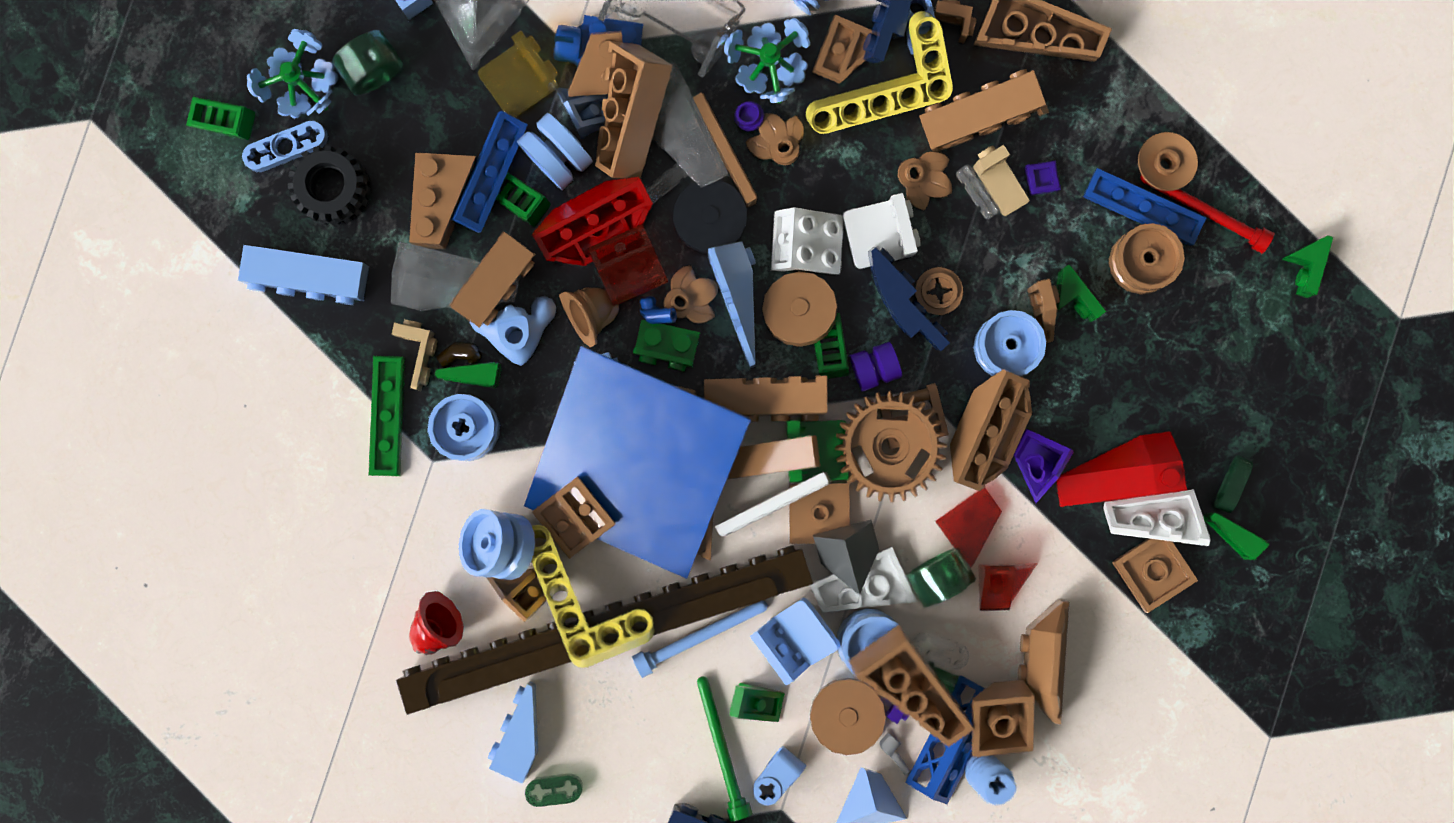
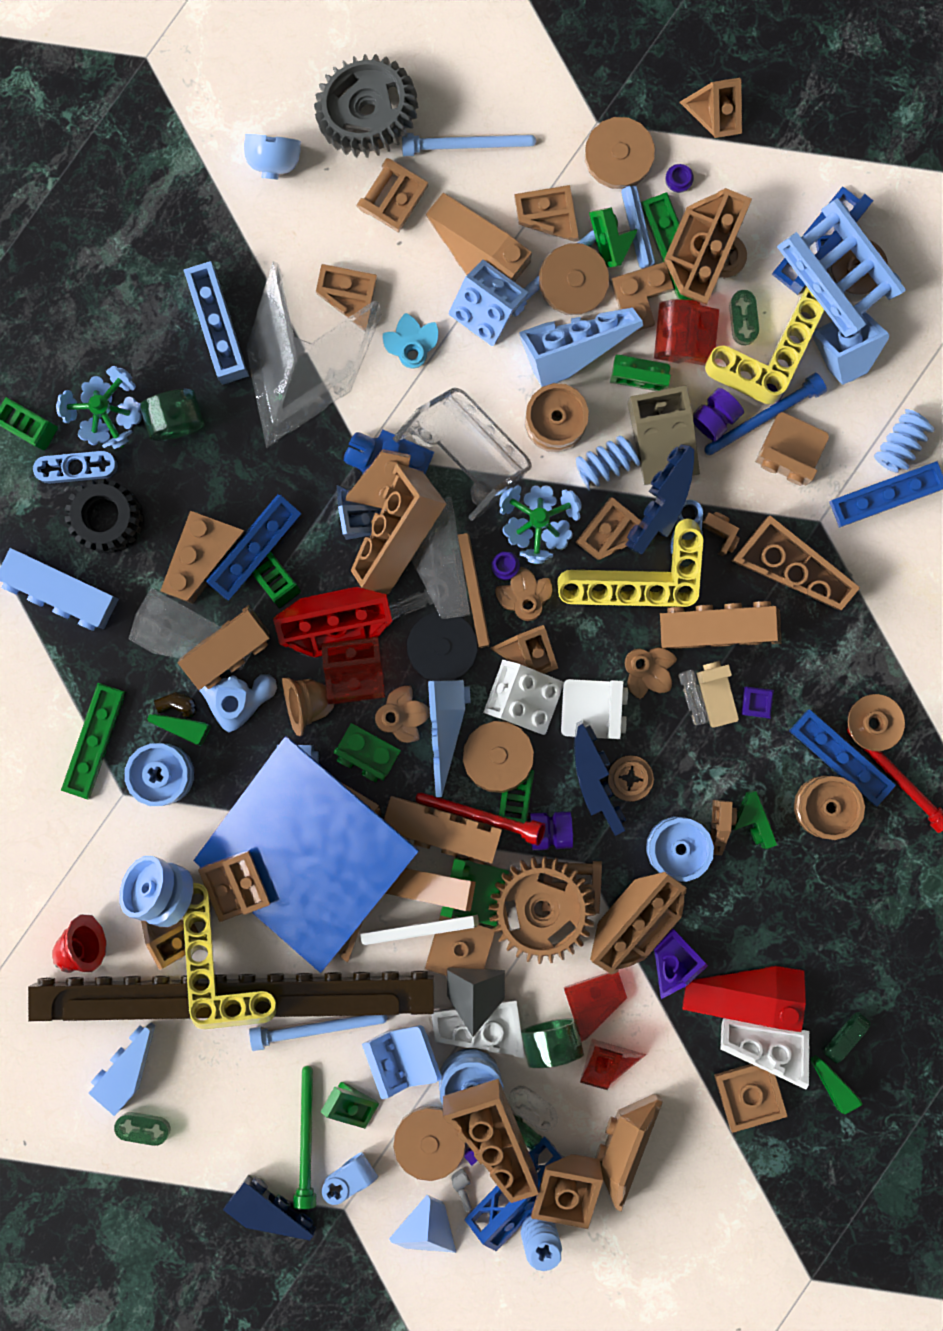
camera: 20 degrees right, 0 degrees up
(412, 331) = (140, 672): tan bracket -> none
(519, 76) = (306, 467): clear yellow bracket -> none
(558, 148) = (317, 547): light blue wheel -> none
(654, 314) = (363, 721): blue arm -> none
(798, 190) = (530, 650): none -> medium nougat slope
(857, 369) = (531, 831): none -> red piece

